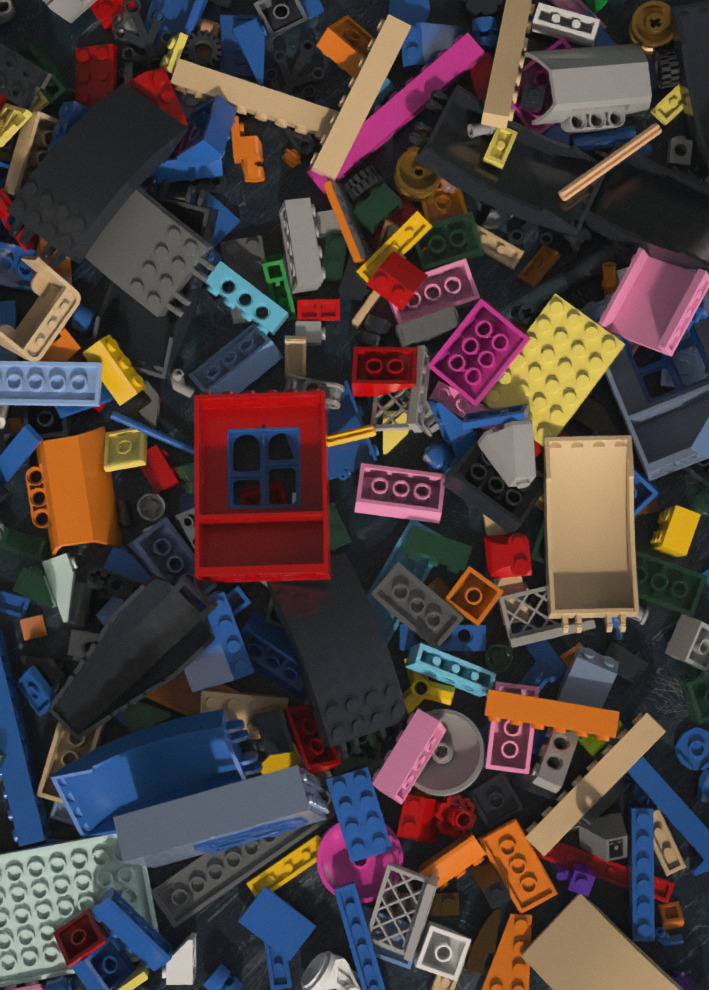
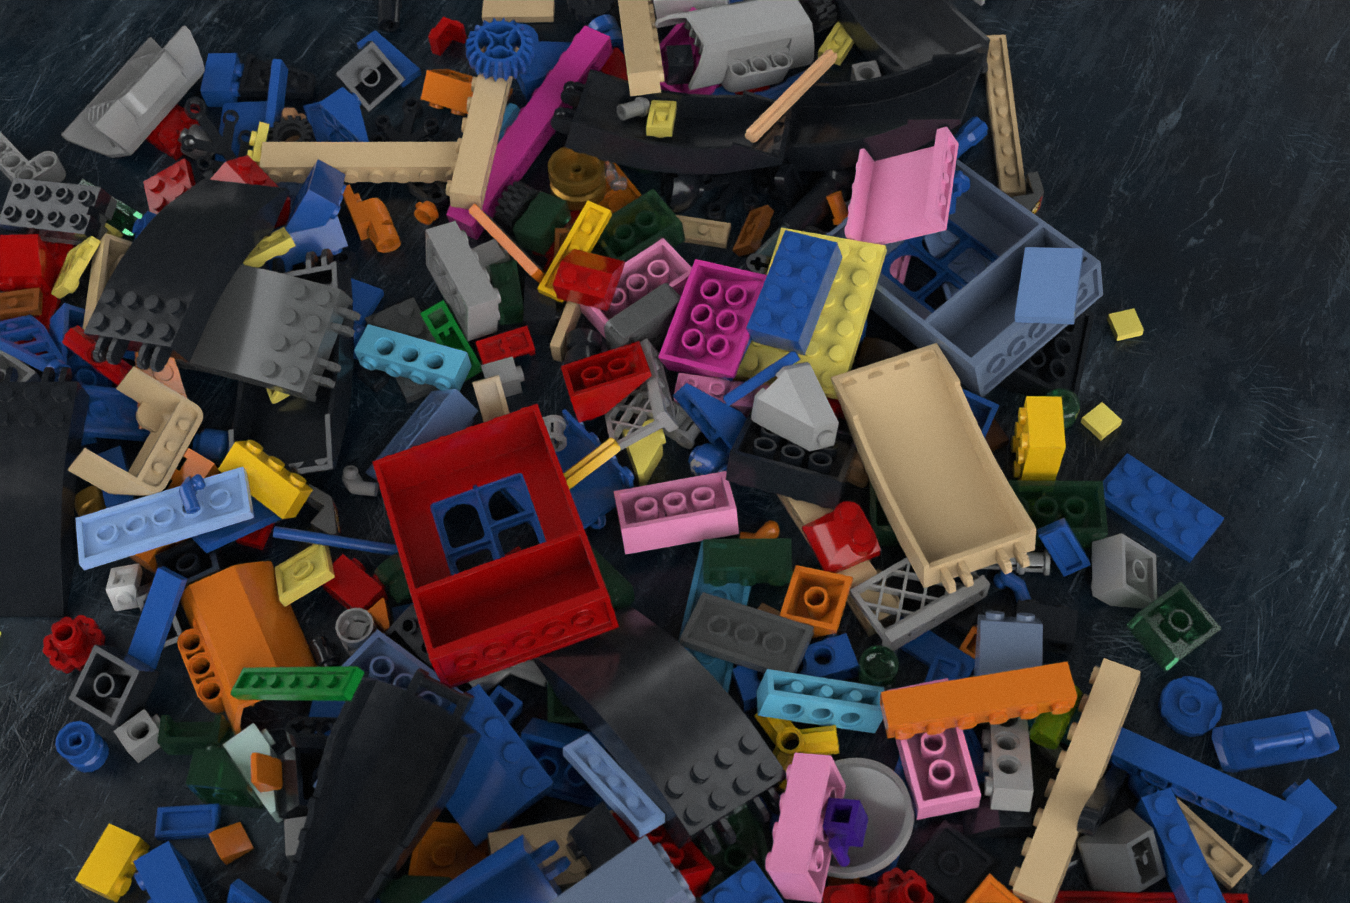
camera: 10 degrees left, 25 degrees down
(57, 373) = (188, 493): none -> blue arm
(67, 595) = (266, 772): none -> orange slope
(102, 560) = (297, 683): none -> green tile
(164, 172) = (270, 246): none -> light yellow plate
(171, 501) = (381, 615): none -> orange slope
(292, 689) = (614, 785): none -> light blue plate
(405, 35) = (500, 58): none -> blue gear
(434, 764) = (845, 827): none -> dark purple brick
(456, 527) = (769, 530): none -> orange arm
(542, 359) = (794, 292): none -> blue brick
(659, 613) = (1063, 547): none -> blue tile

